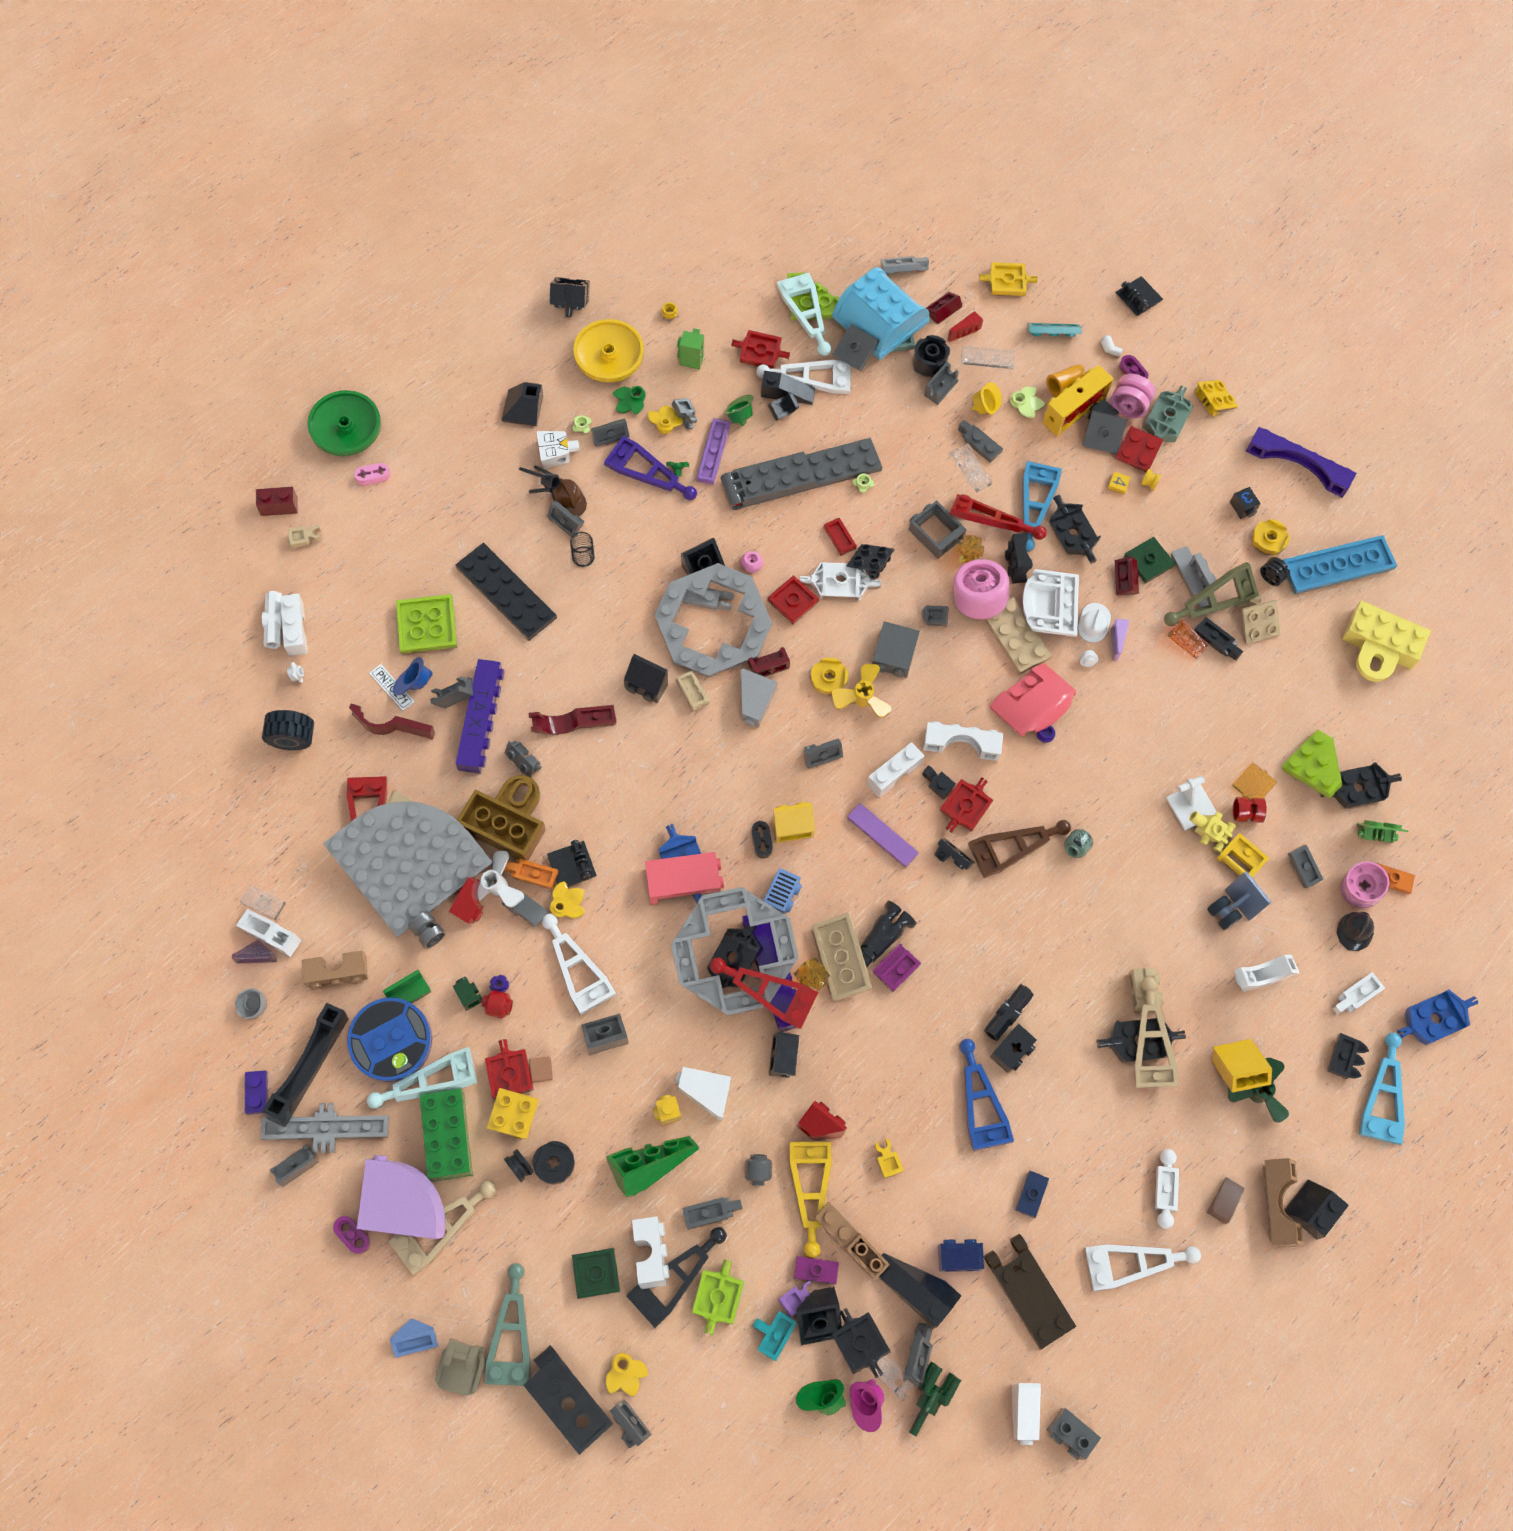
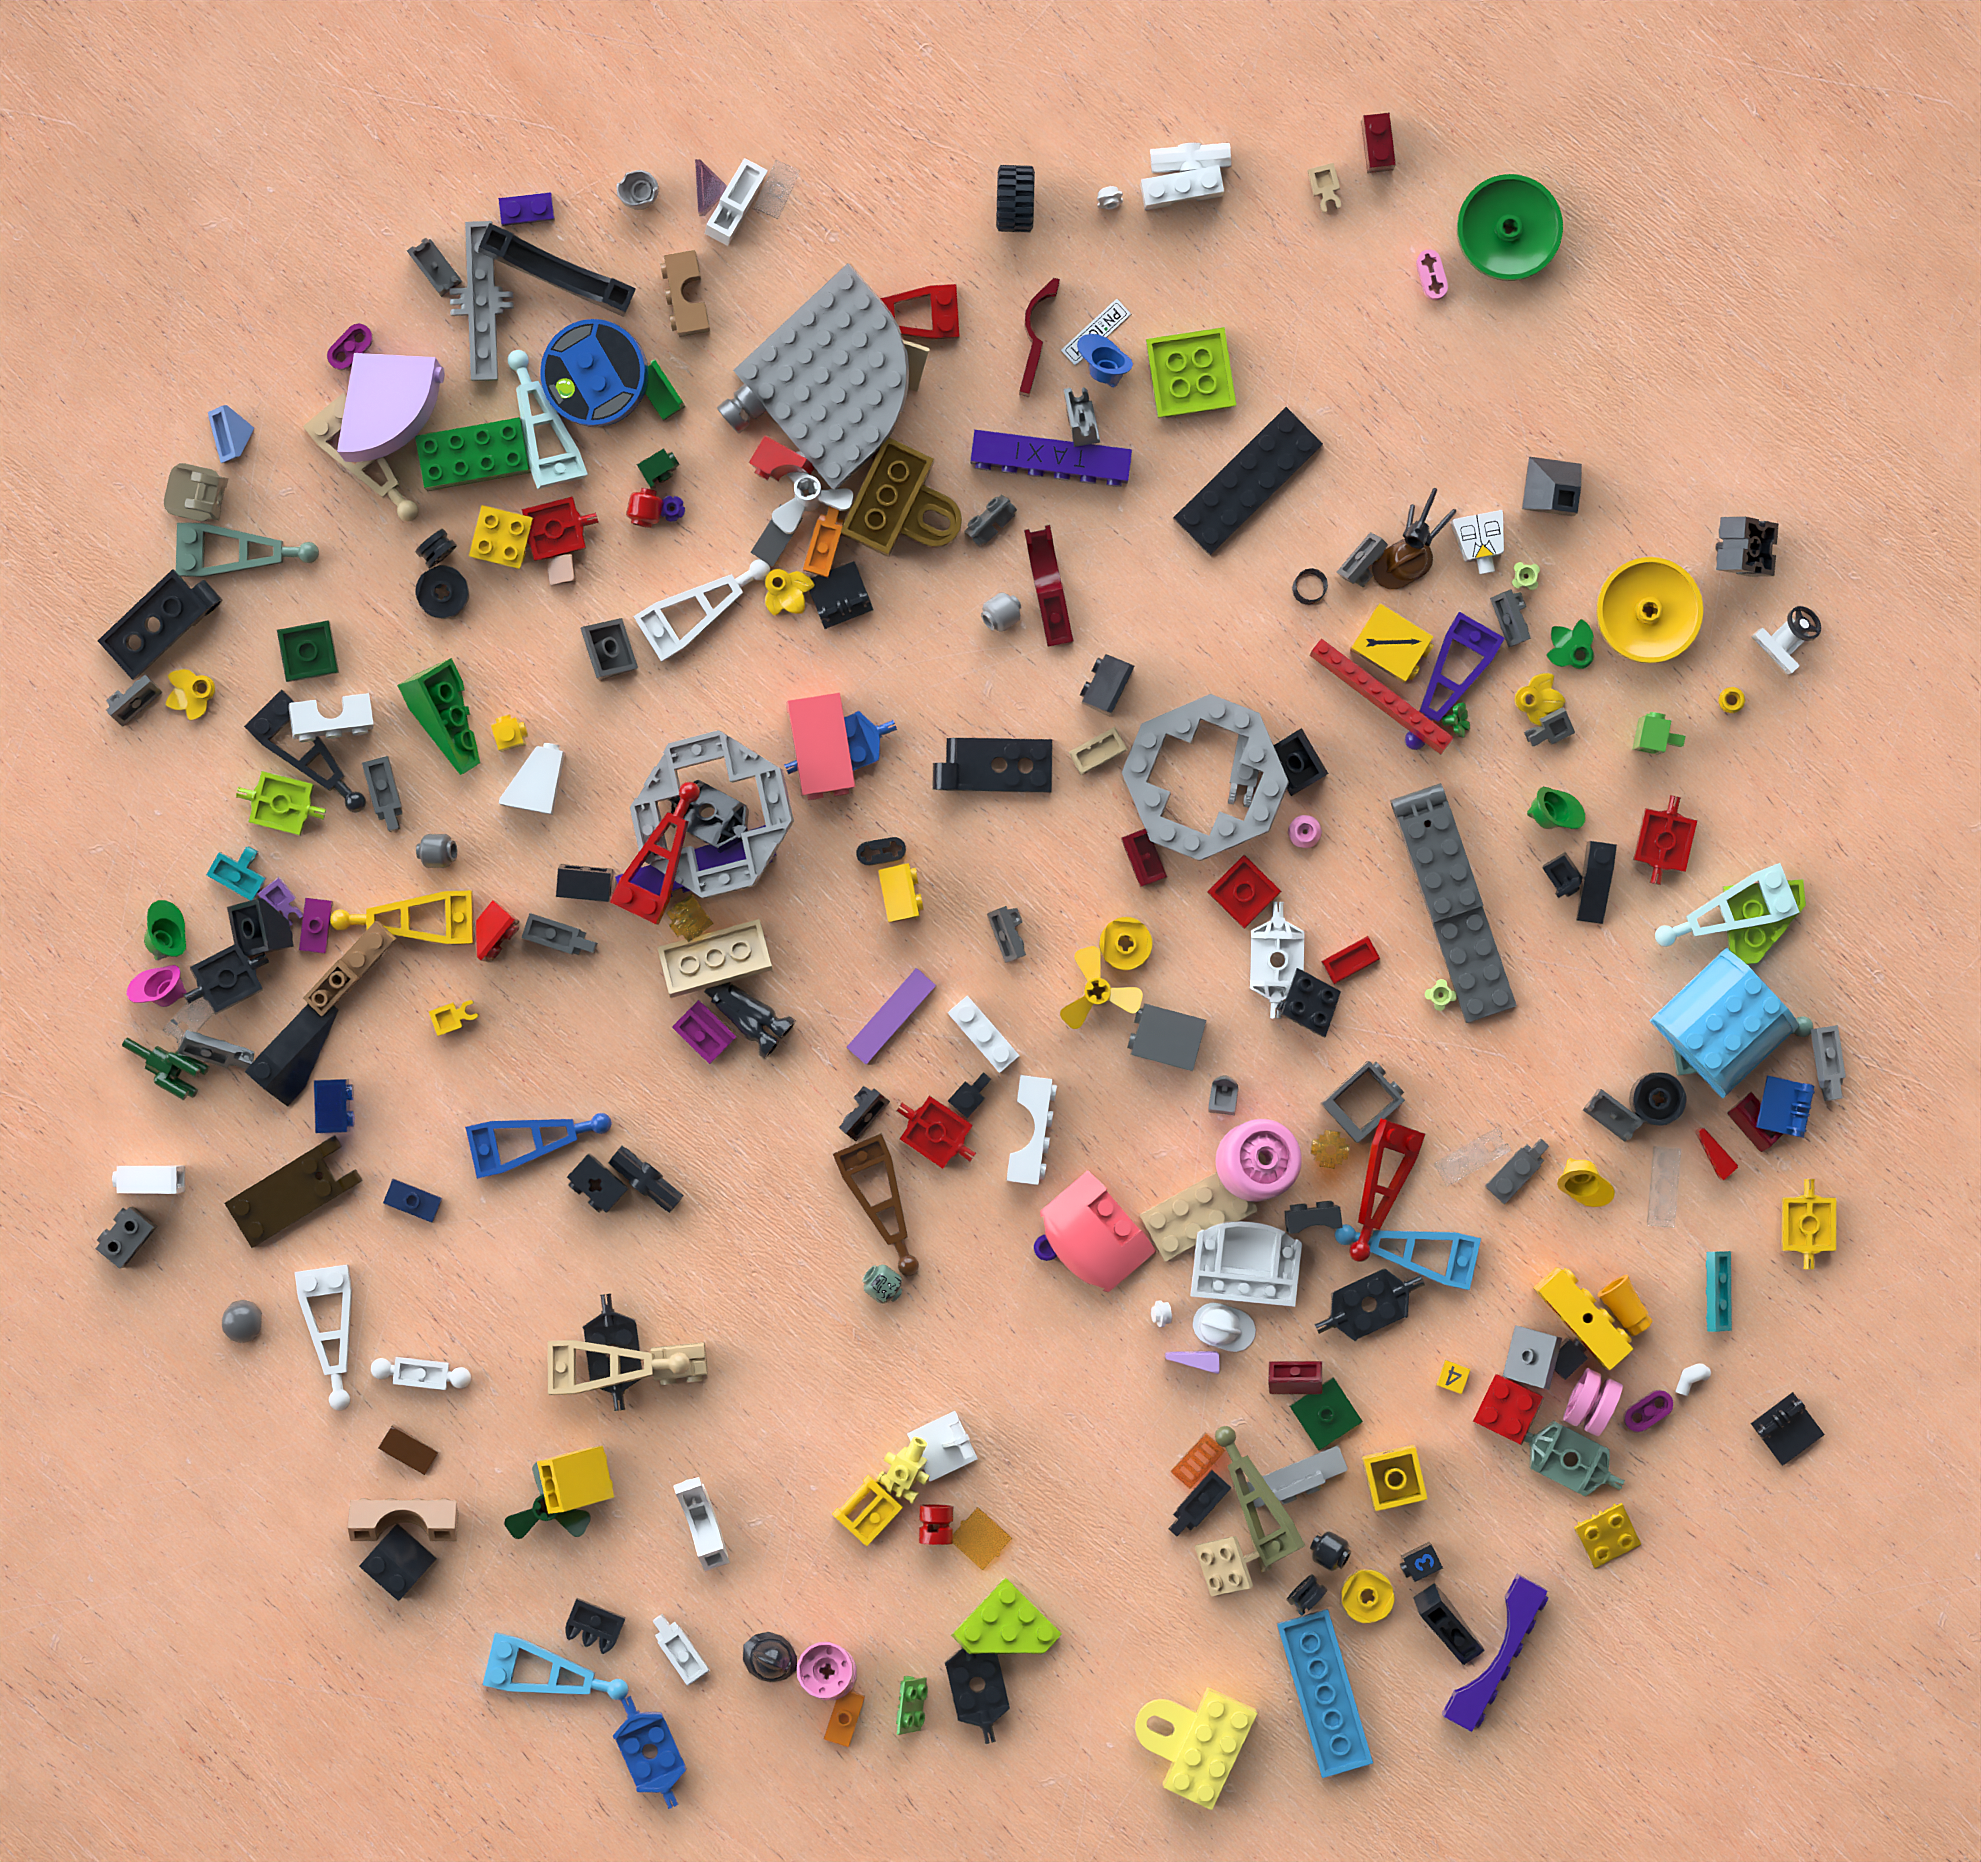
camera: 90 degrees right, 20 degrees up
(590, 751) = (1001, 612): none -> light grey head
(623, 503) = (1392, 643): none -> yellow brick
(632, 282) = (1788, 638): none -> white piece
(660, 509) = (1381, 696): none -> red piece
(696, 776) = (970, 765): none -> black hinge
(713, 451) = (1488, 772): medium lavender tile -> none
(755, 697) = (1088, 838): light grey slope -> none
(782, 891) = (803, 878): medium blue brick -> none
(824, 1077) = (556, 935): none -> dark grey hinge
(840, 376) = (1624, 962): white plate -> none
(856, 347) = (1662, 983): dark grey plate -> none
(933, 287) = (1785, 1106): none -> blue hinge
(1029, 402) = (1588, 1248): yellowish green plate -> none
(1135, 1335) = (242, 1321): none -> dark grey hair
(1151, 479) = (1456, 1423): yellow wheel -> none
(1191, 515) = (1394, 1477): none -> yellow brick
(1242, 554) = (1330, 1551): none -> black head
(1246, 897) = (809, 1507): sand blue plate -> none
(1284, 488) = (1447, 1624): none -> black slope
(1305, 866) = (855, 1594): dark grey hinge -> none

